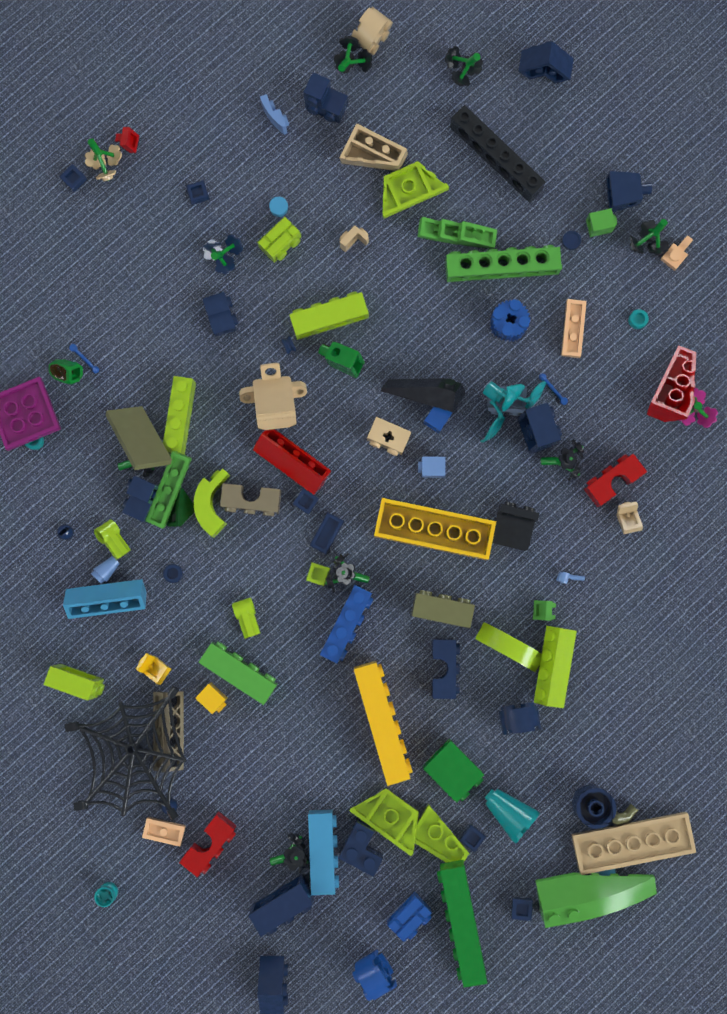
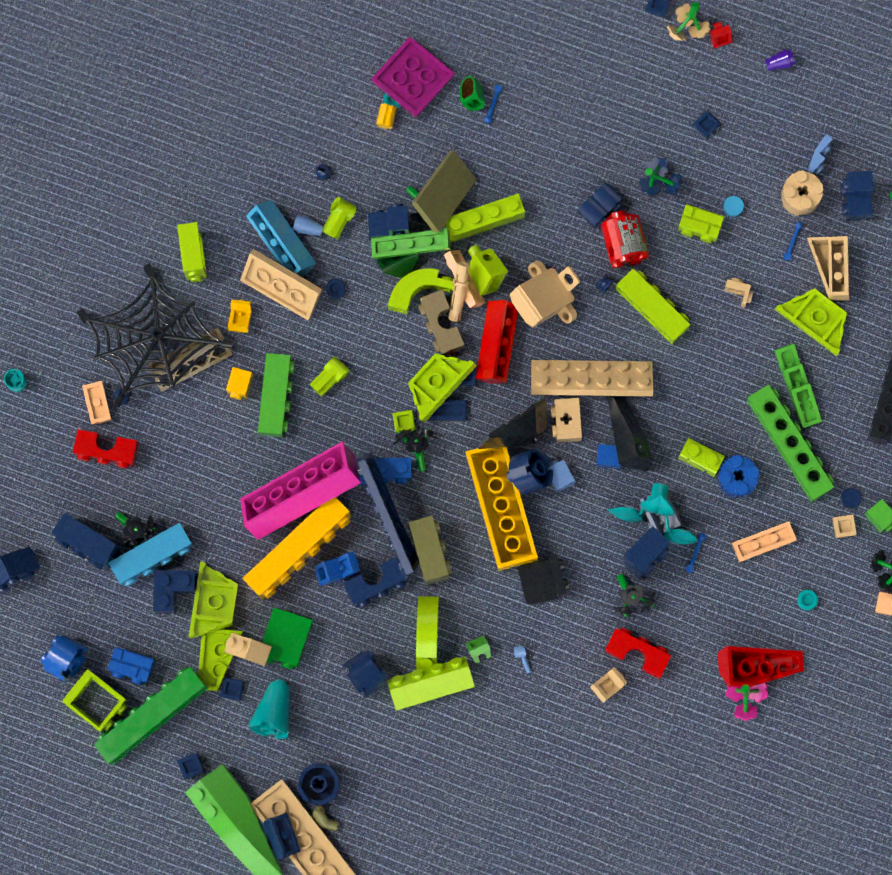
camera: 65 degrees right, 5 degrees down
(45, 453) = (386, 116): none -> yellow piece
(144, 619) = (281, 284): none -> tan plate
(176, 102) = (781, 60): none -> dark purple cone
(222, 460) = (472, 296): none -> light nougat plate
(225, 437) = (486, 270): none -> lime torso
(226, 465) = (460, 283): none -> tan pin
(260, 308) = (624, 239): none -> red cylinder
(296, 134) = (807, 202): none -> tan brick
(300, 529) = (437, 382): none -> lime wing
(336, 696) = (300, 490): none -> dark pink brick
(343, 358) = (618, 338): green torso -> none
(344, 185) = (787, 256): none -> blue hinge
(364, 397) = (591, 378): none -> tan plate
(380, 479) = (520, 430): none -> black wedge
(394, 629) = (385, 507): none -> dark blue plate
(417, 696) = (337, 569): none -> blue brick
(420, 489) = (530, 471): none -> dark blue brick
(425, 984) = (77, 691): none -> lime window
(449, 811) = (247, 649): none -> tan brick
(477, 342) = (701, 457): none -> lime brick
(593, 257) = (844, 526): none -> tan plate
(623, 860) = (282, 836): none -> dark blue slope

